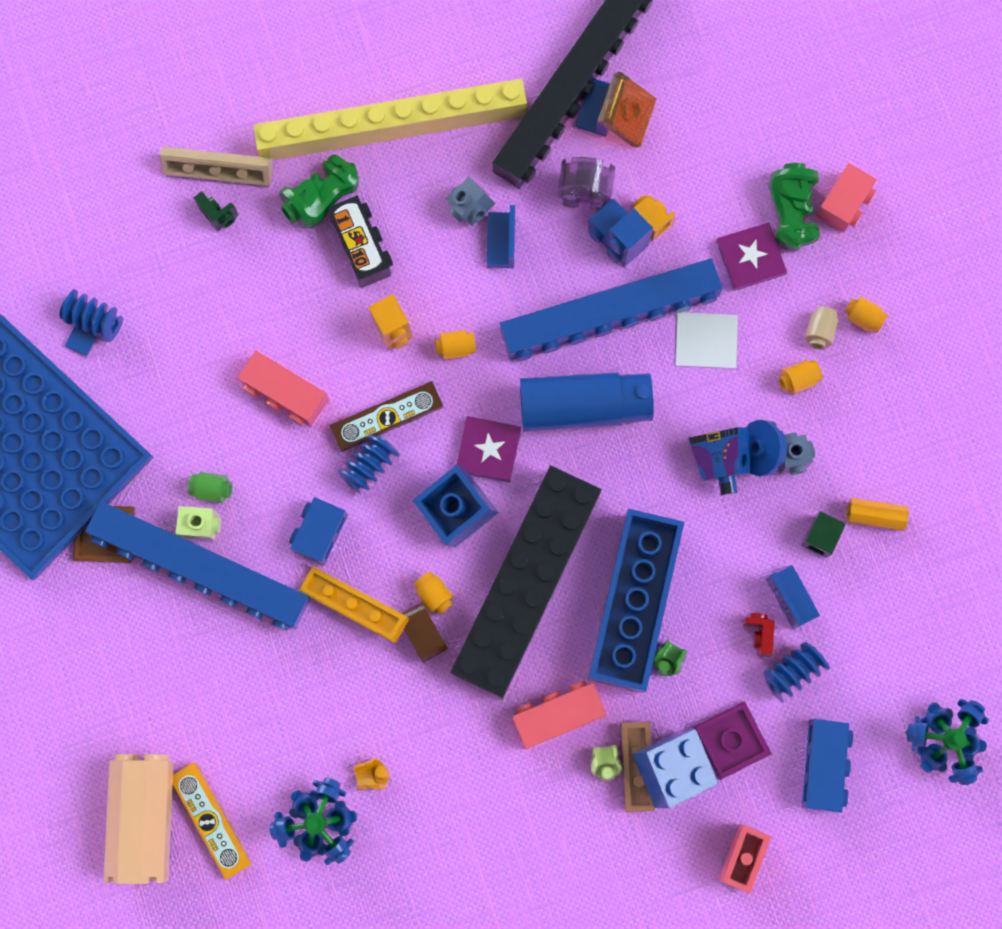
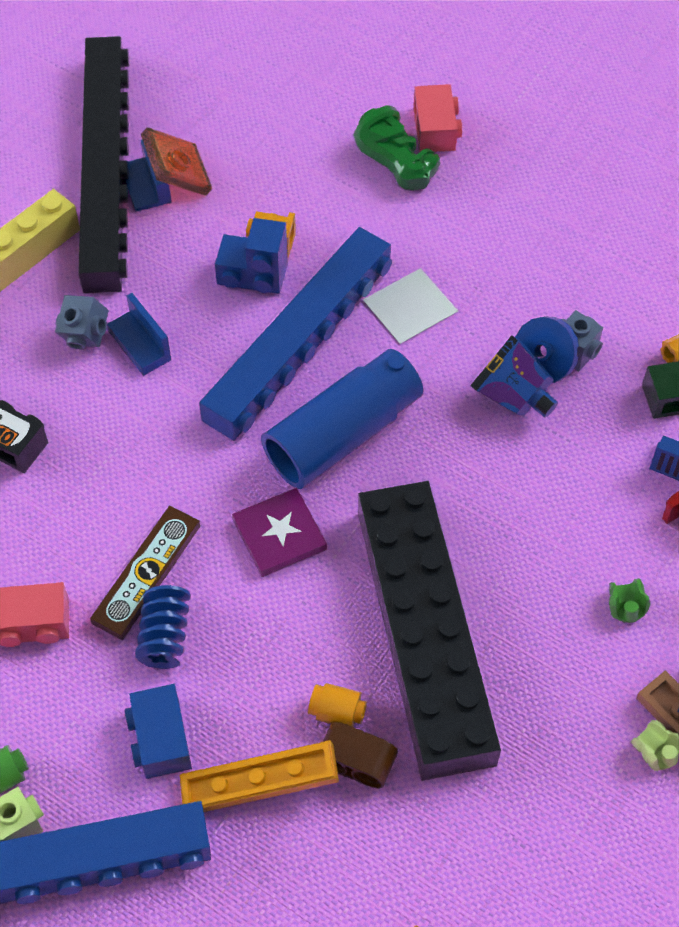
camera: 40 degrees left, 20 degrees down
(391, 322) = (83, 472): light orange brick -> none
(455, 344) = (167, 456): light orange brick -> none
(455, 506) = (292, 599): blue brick -> none
(558, 714) = (568, 733): coral brick -> none
(585, 182) = (186, 237): clear purple brick -> none
(636, 601) = (552, 566): blue brick -> none
(751, 256) = (392, 213): magenta tile -> none
(800, 376) = (524, 276): light orange brick -> none
(821, 328) = (506, 227): tan brick -> none
(866, 314) = (535, 193): light orange brick -> none

